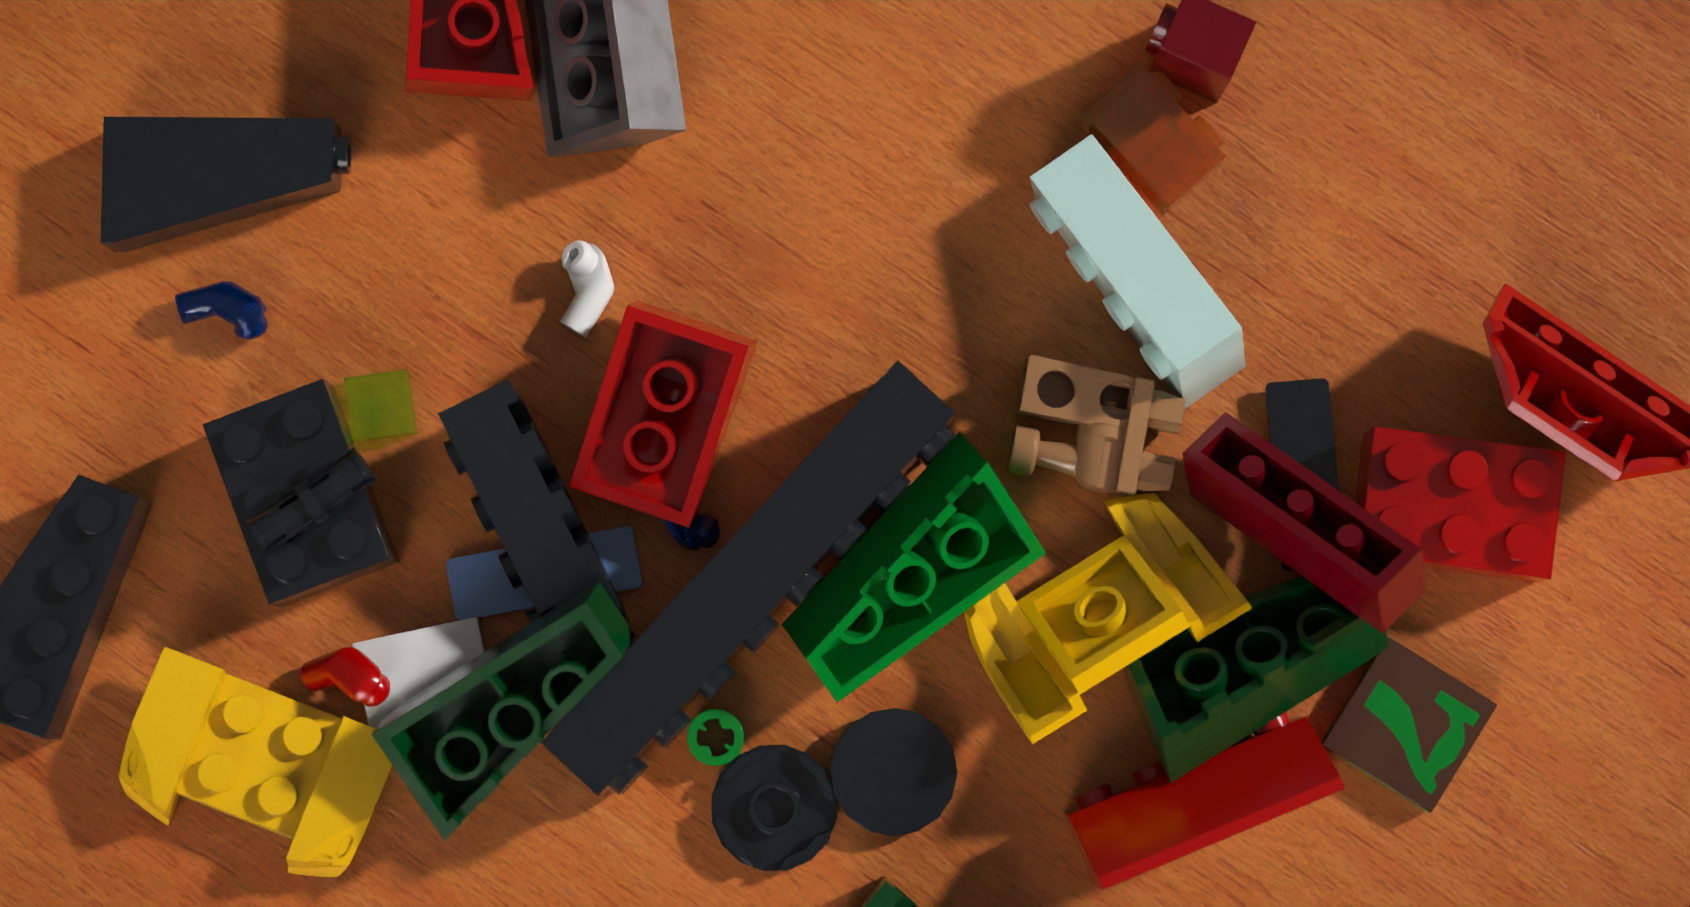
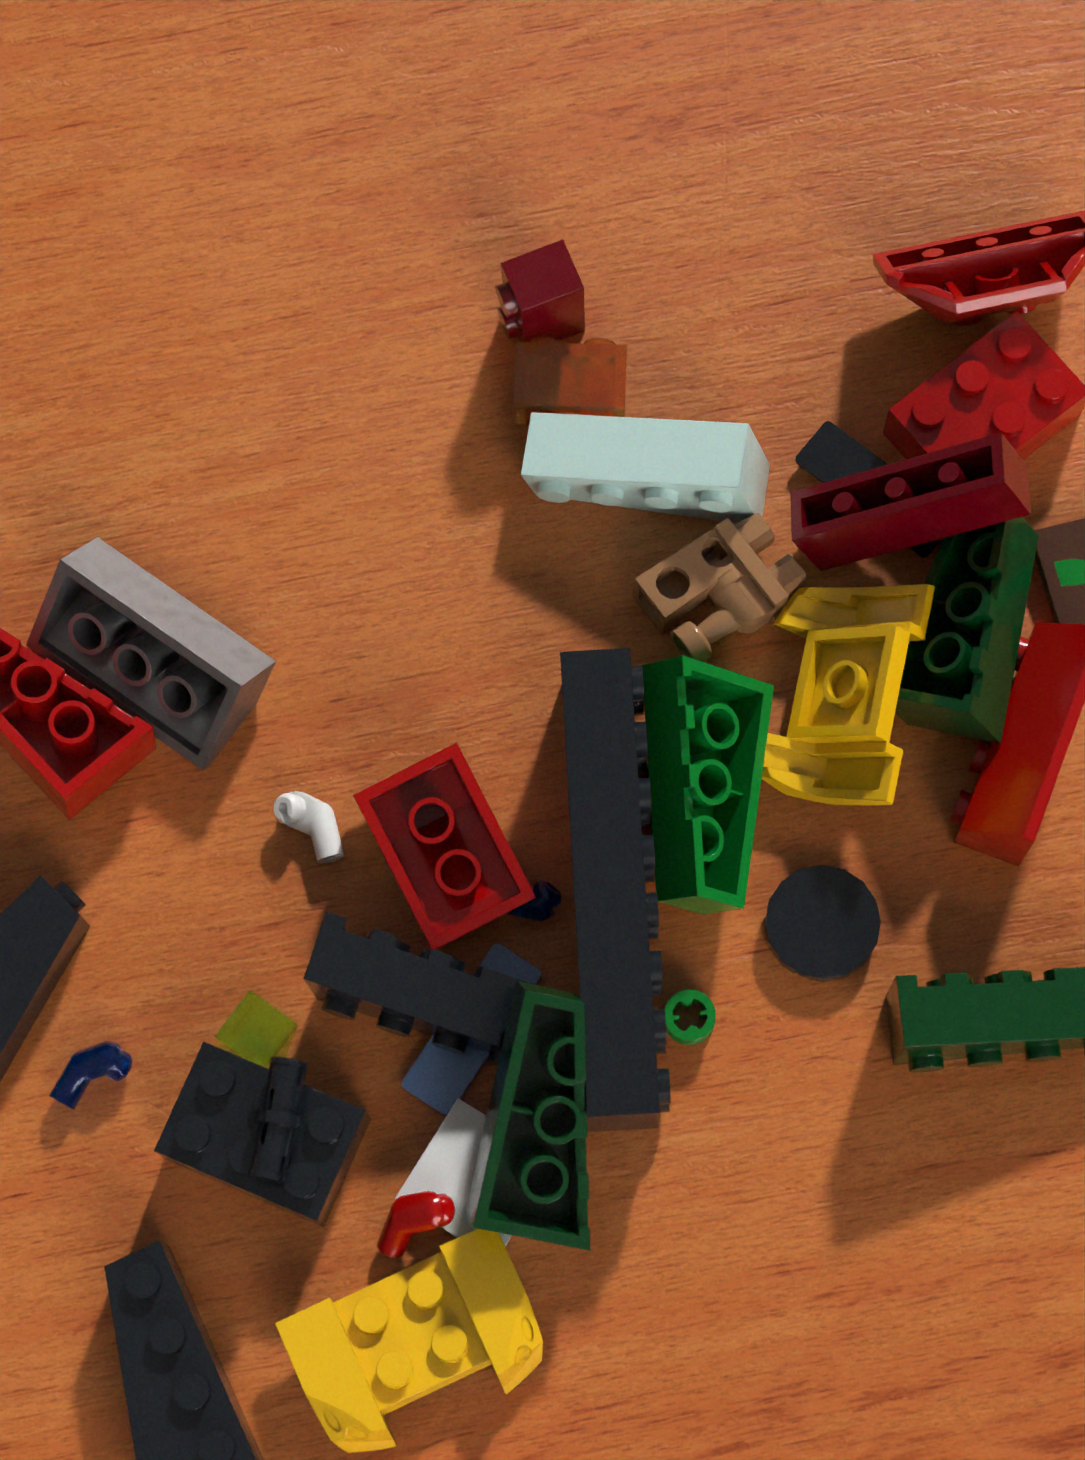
camera: 40 degrees left, 10 degrees down
(774, 807) = (772, 1023): black tile -> none

